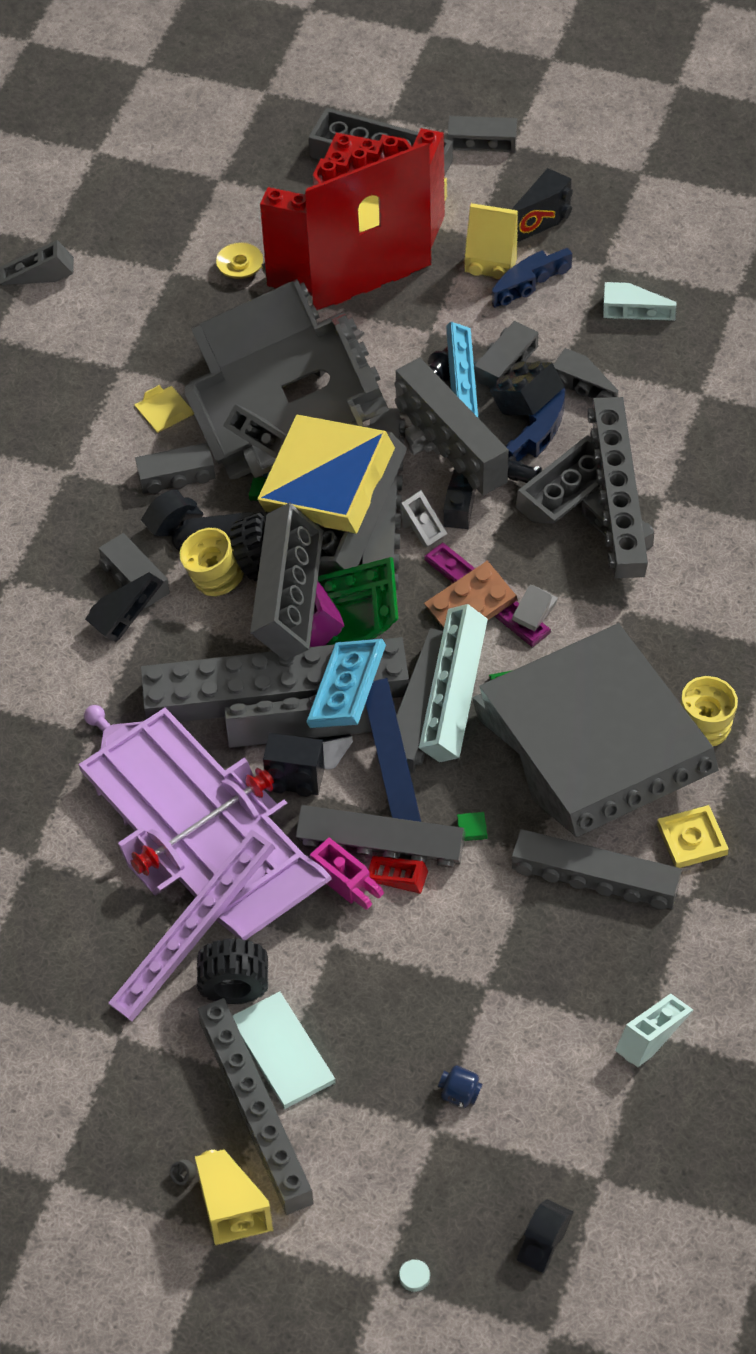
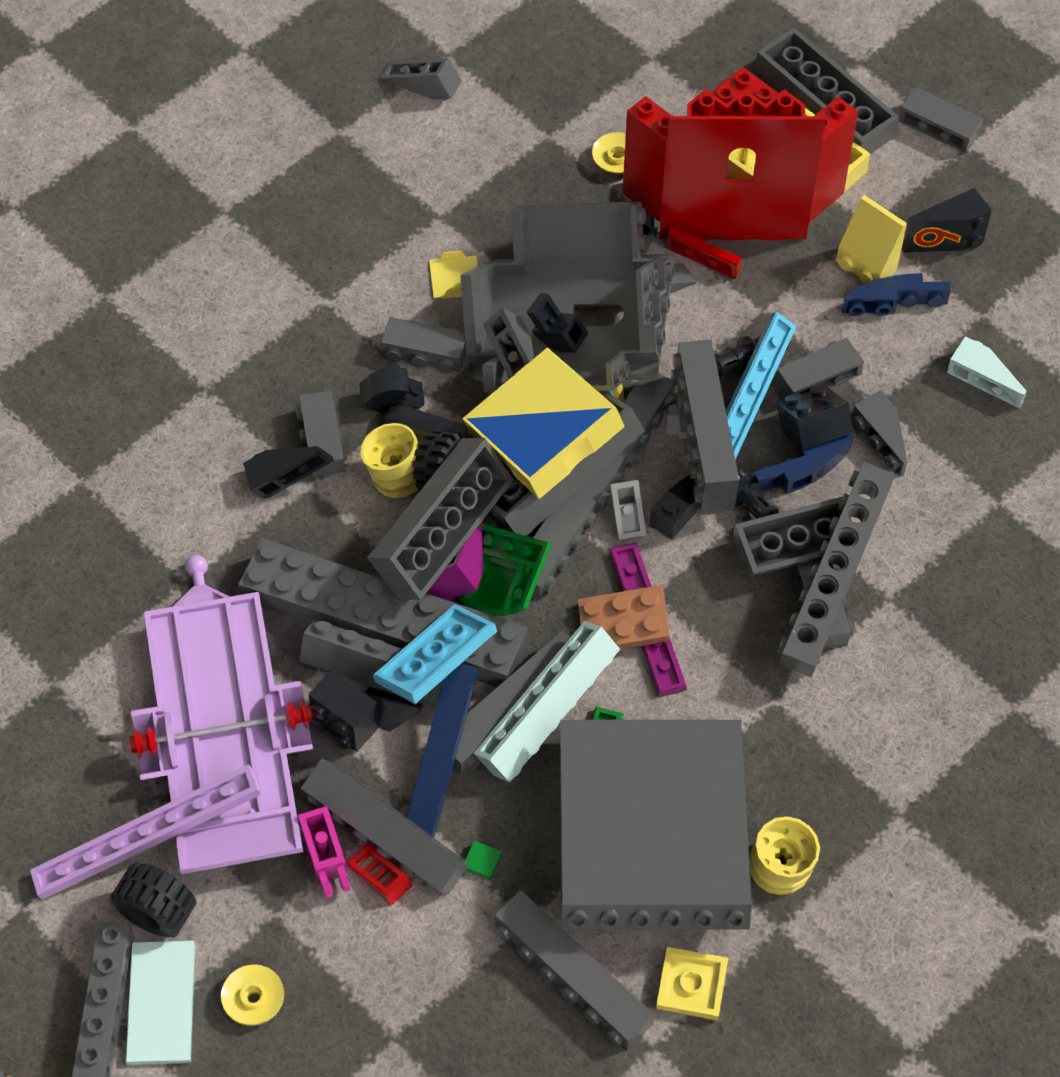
camera: 25 degrees right, 5 degrees up
(282, 406) = (556, 329): none -> black brick
(351, 996) = (248, 981): none -> light yellow dish
(358, 306) = (703, 253): none -> red tile
(534, 607) = (682, 656): light grey slope -> none

